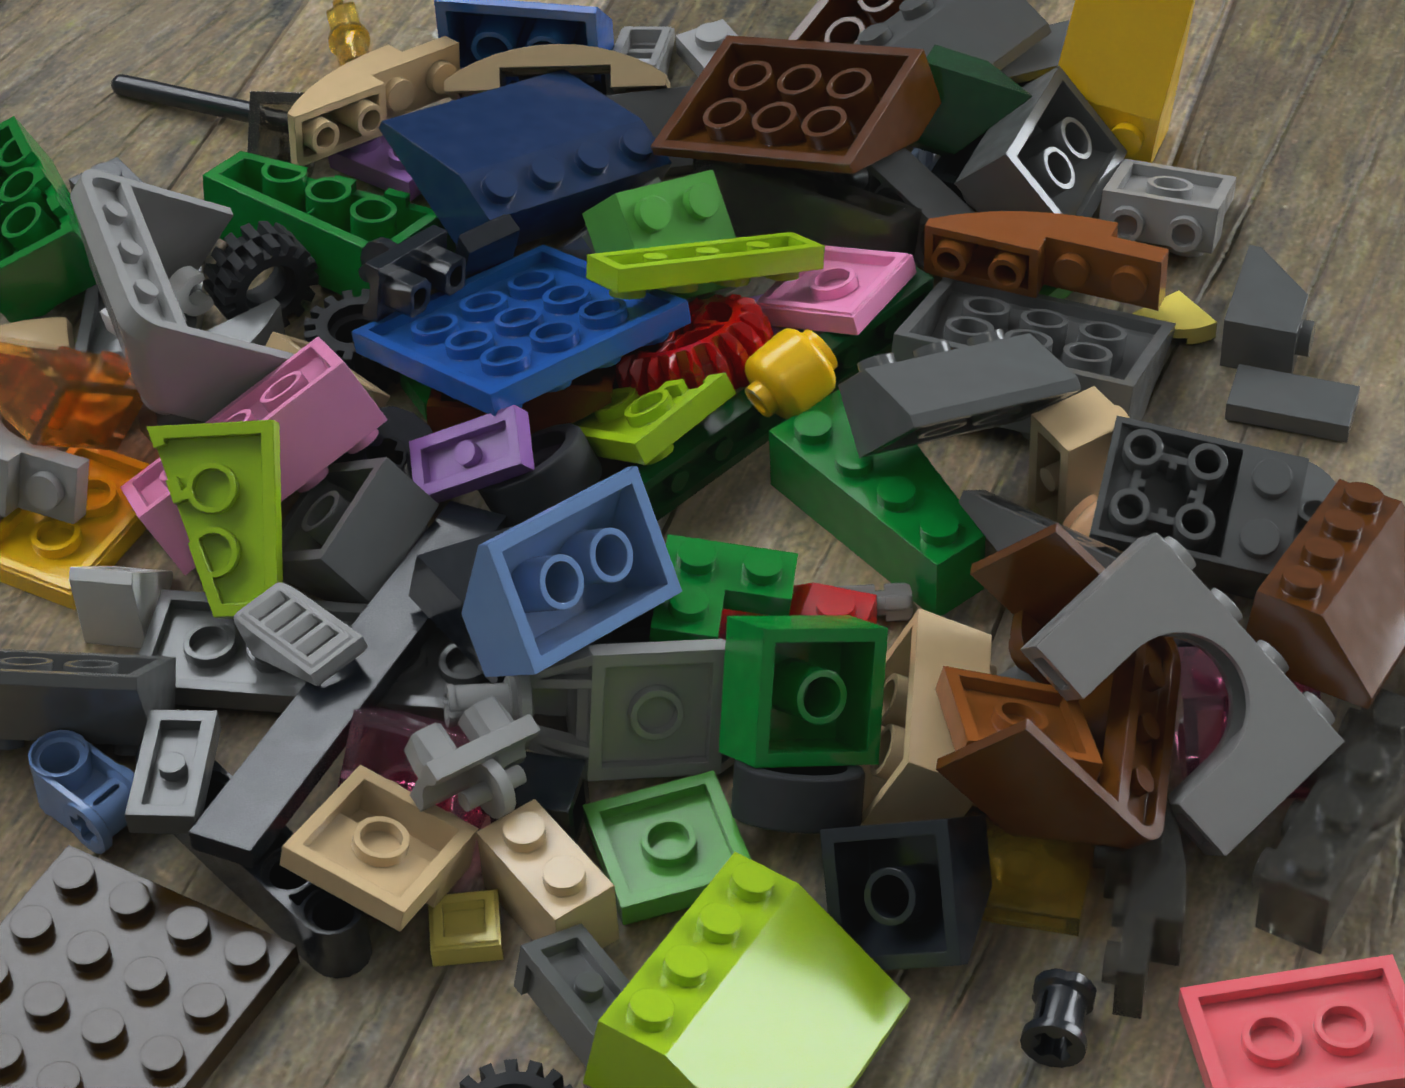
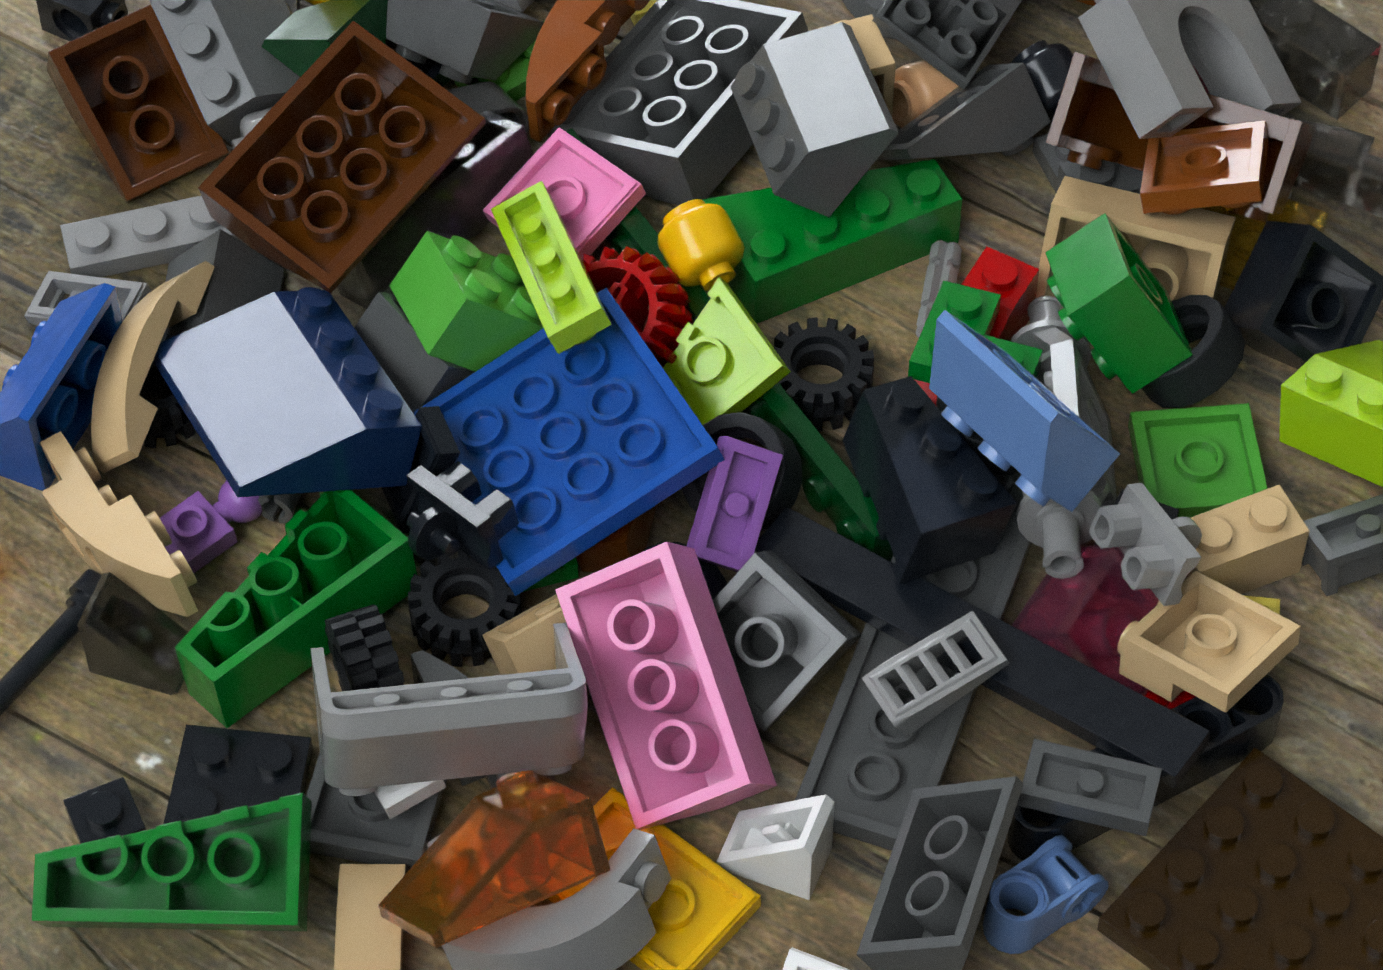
camera: 80 degrees left, 10 degrees up
(230, 504) = (776, 695): lime wing -> none
(707, 503) = (829, 348): none -> black tyre

